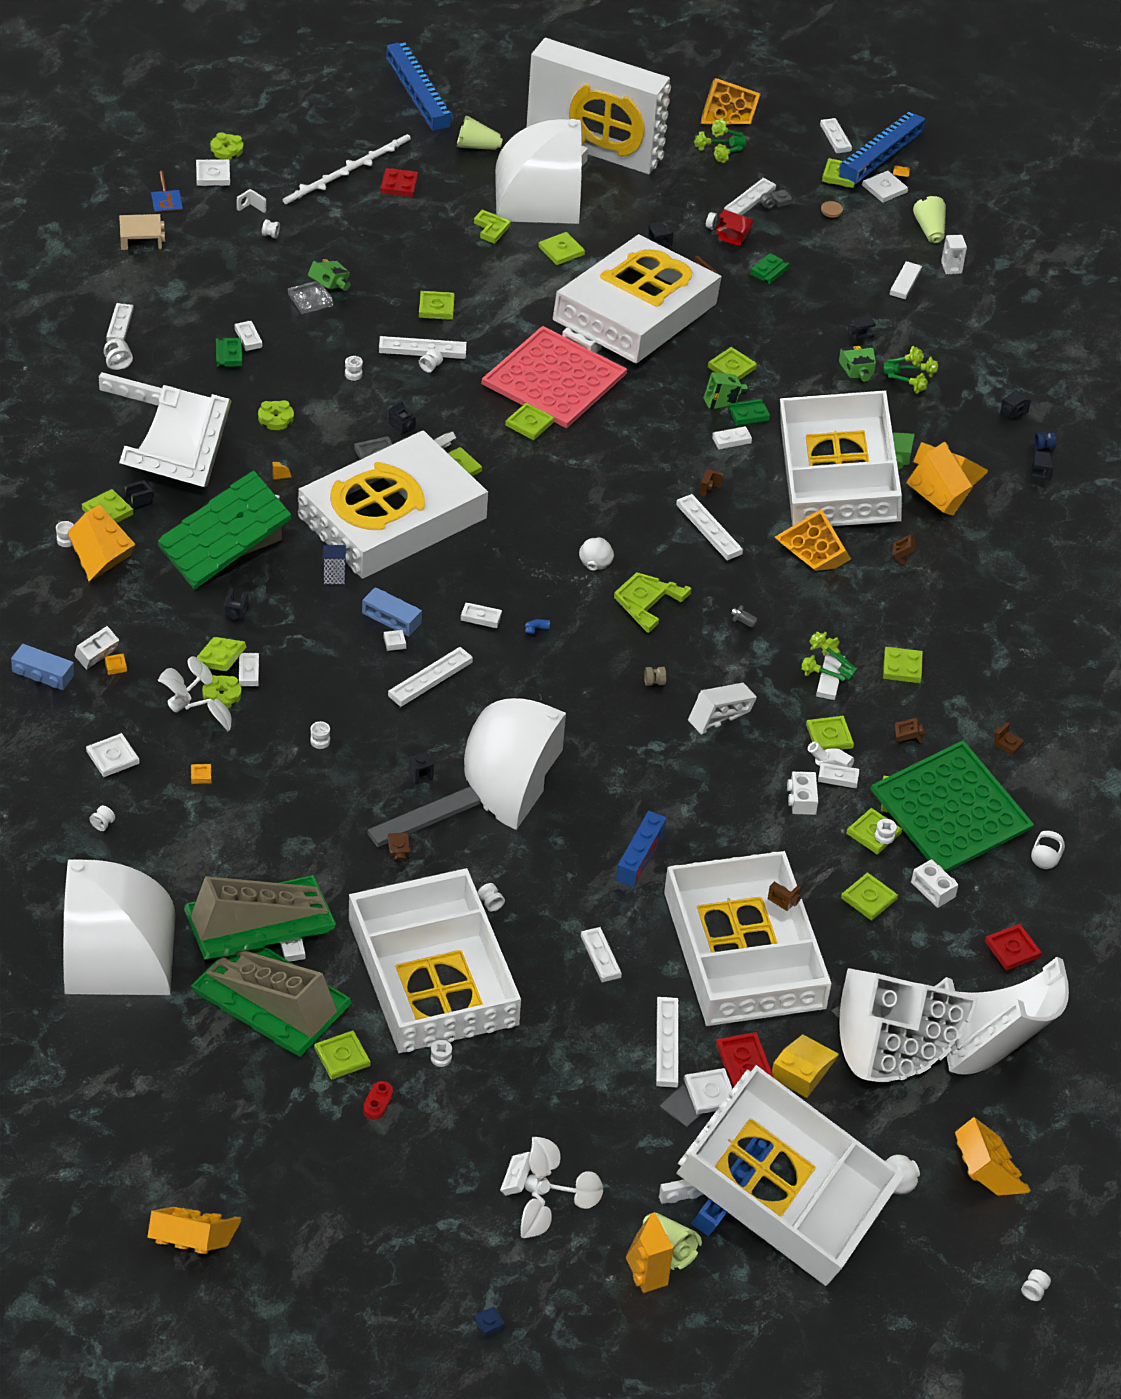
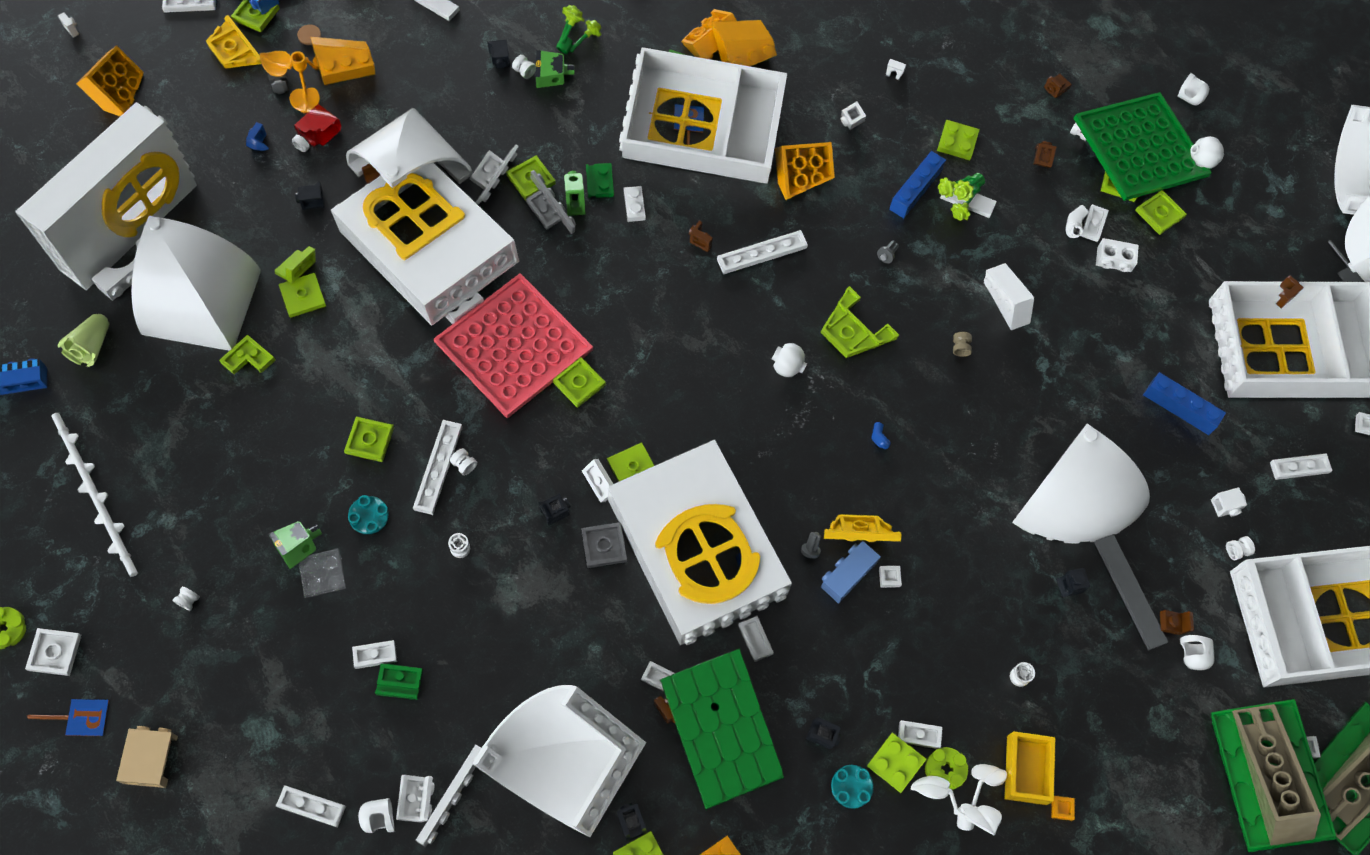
camera: 80 degrees left, 20 degrees up
(136, 371) = (415, 798): none -> white bracket
(193, 629) = (852, 786): none -> teal dish
(230, 738) = (1030, 768): none -> yellow piece
(251, 198) = (125, 607): white bracket -> none
(267, 414) = (522, 653): lime plate -> none
(280, 471) = (614, 653): light orange tile -> none
(310, 561) = (755, 638): none -> white tile
(334, 564) = (784, 618): dark blue panel -> none
(368, 314) = (368, 514): none -> teal dish
(369, 862) = (1198, 655): none -> white helmet
(399, 182) = (136, 440): red plate -> none
(407, 585) = (811, 548): none -> dark grey piece
(430, 676) = (945, 551): white plate -> none
(434, 609) = (861, 528): none -> yellow wing
(481, 615) = (862, 485): white plate -> none
(539, 887) = (1229, 502): none -> white brick
(587, 237) = (296, 264): none -> lime panel
(700, 375) = (546, 206): none -> light grey bracket
(707, 194) = (255, 138): none -> blue plate
(721, 154) = (172, 95): lime plant -> none
(727, 337) = (488, 171): none -> white bracket
(732, 275) = (405, 147): none -> white panel
(750, 197) = (268, 101): white tile -> none
(769, 268) = (384, 109): green plate -> none
(778, 71) = (69, 24): none -> white plate
(786, 193) = (278, 62): none -> light orange plant
(798, 165) = (232, 46): none -> yellow wing
(809, 227) = (342, 59): none -> light orange wedge
(830, 733) = (1043, 217): lime plate -> none
(851, 636) = (917, 184): none -> blue brick
(855, 340) = (524, 66): none -> white wheel
(869, 896) = (1236, 235): lime plate -> none
(885, 831) = (1176, 204): white wheel -> none
(892, 573) = (852, 116): none -> white brick
(903, 548) = (821, 97): reddish brown bracket -> none
(934, 883) = (1224, 181): white brick -> none
(965, 863) = (1207, 152): none -> white plant
(970, 607) = (895, 66): none -> white tile
(1013, 947) = (1291, 144): red plate -> none

